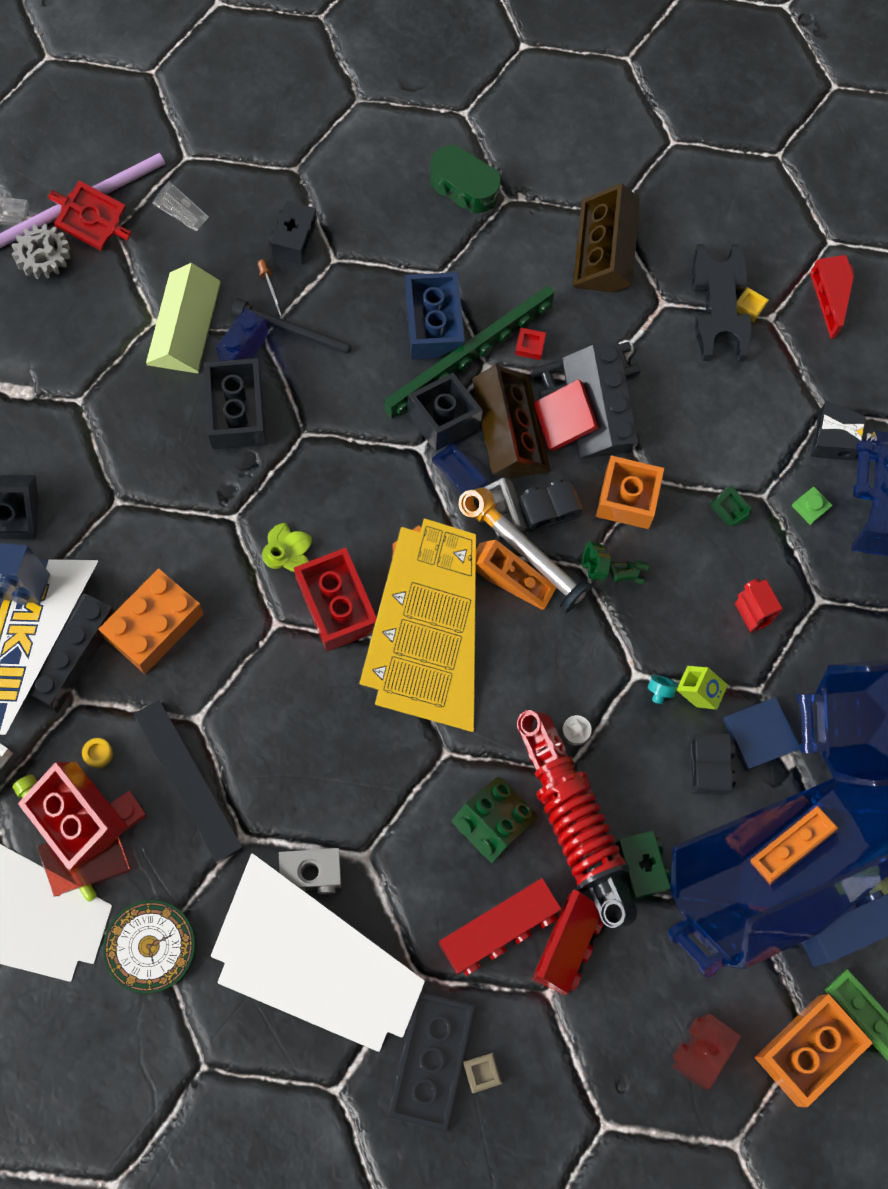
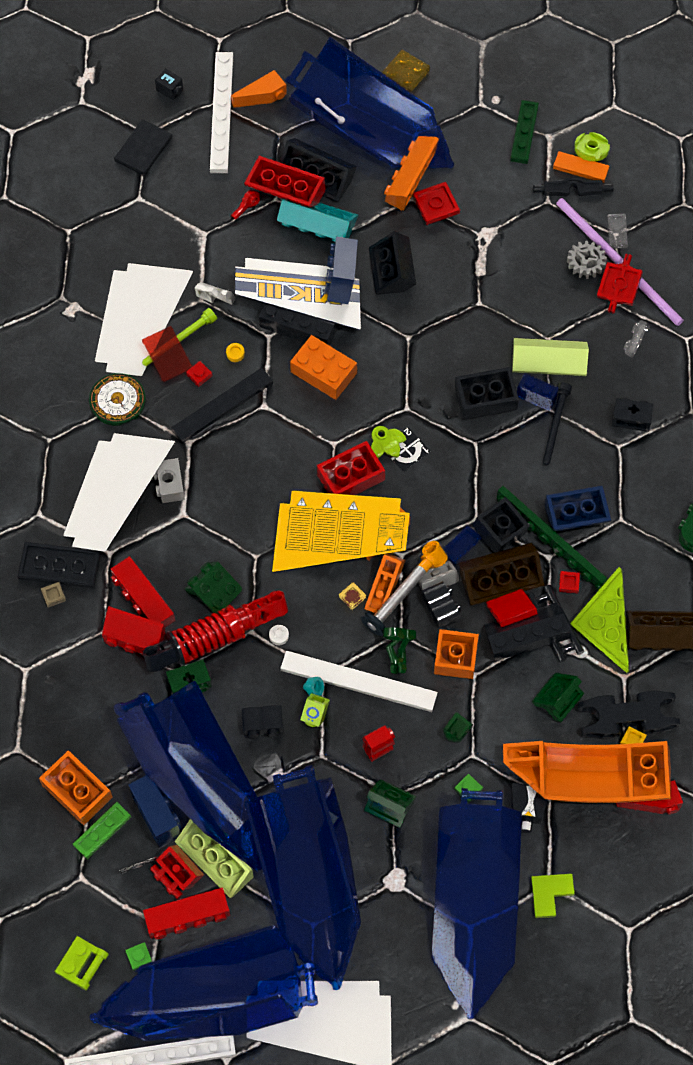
camera: 90 degrees right, 5 degrees down
(71, 814) = (192, 341): red slope -> none
(265, 272) = (599, 402): dark orange piece -> none
(302, 517) = (410, 450): none -> sticker
(523, 622) = (352, 595): none -> clear yellow tile
(590, 306) = (605, 621): none -> lime tile
(652, 630) = (359, 681): none -> white tile
(692, 376) = (559, 695): none -> dark green bracket
(705, 1051) = (72, 724): clear red brick -> none
(761, 733) = (288, 754): dark blue tile -> none
(794, 845) = (209, 774): orange tile -> none
(806, 346) = (593, 771): none -> orange slope
(836, 602) = (389, 802): none -> dark green bracket

